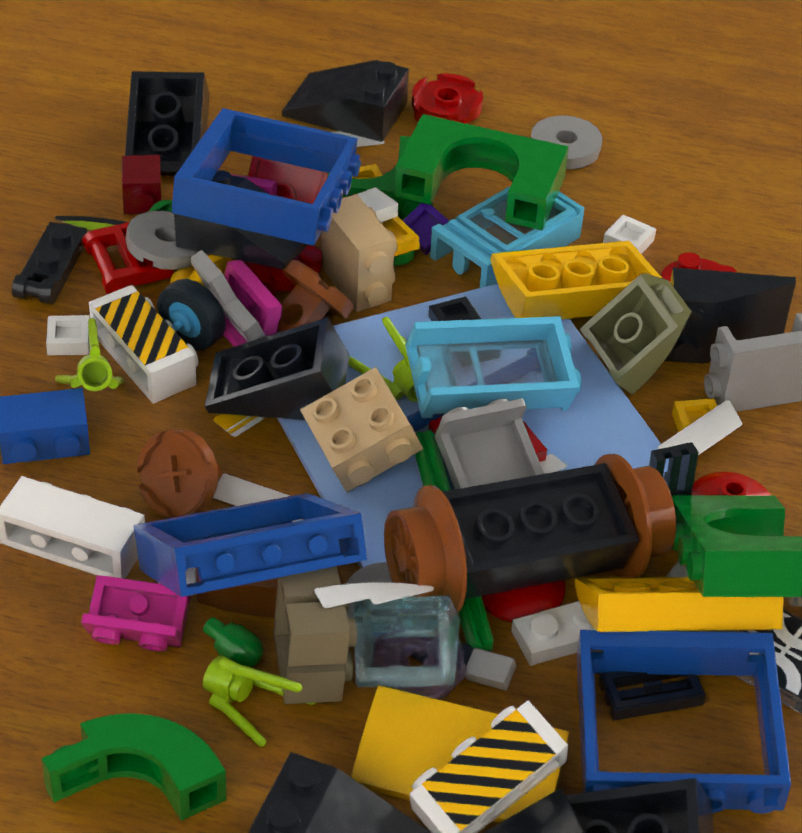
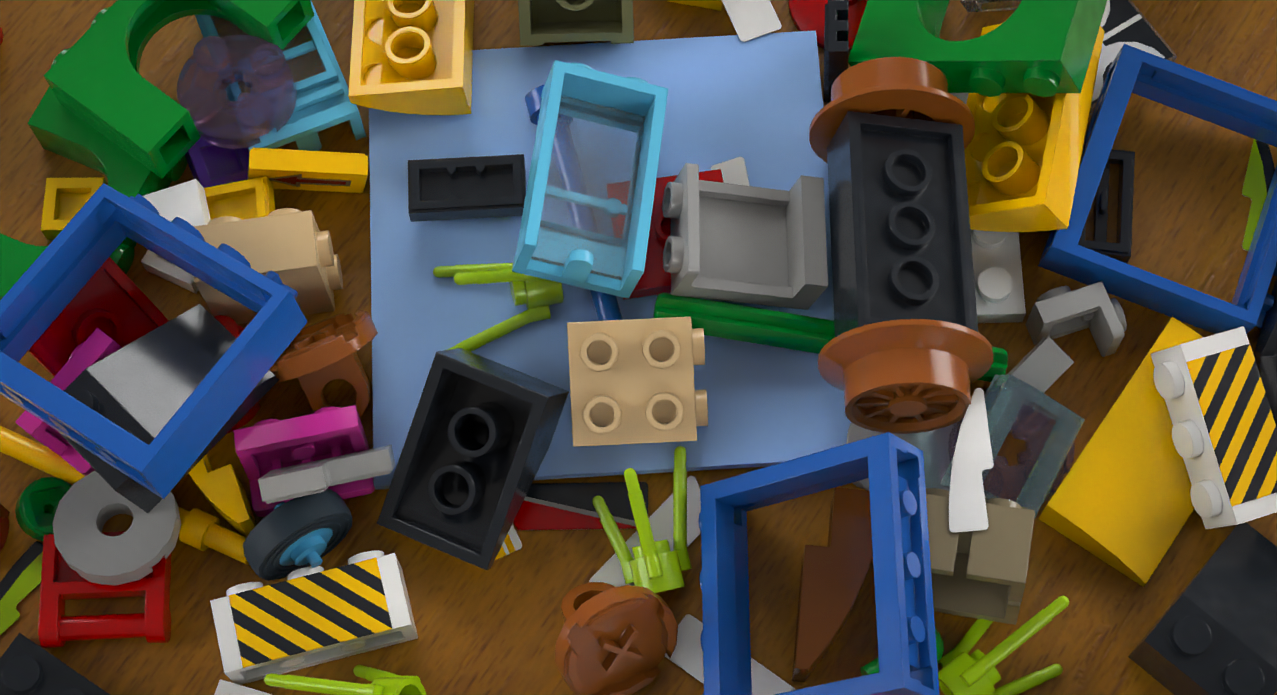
camera: 65 degrees left, 25 degrees up
(244, 484) = (654, 562): none -> lime plant
(275, 456) = (571, 506): none -> sticker
(437, 259) = (310, 169): none -> yellow tile
(452, 196) = (232, 59): none -> clear purple plate
(544, 678) = (1068, 311): none -> light grey bracket

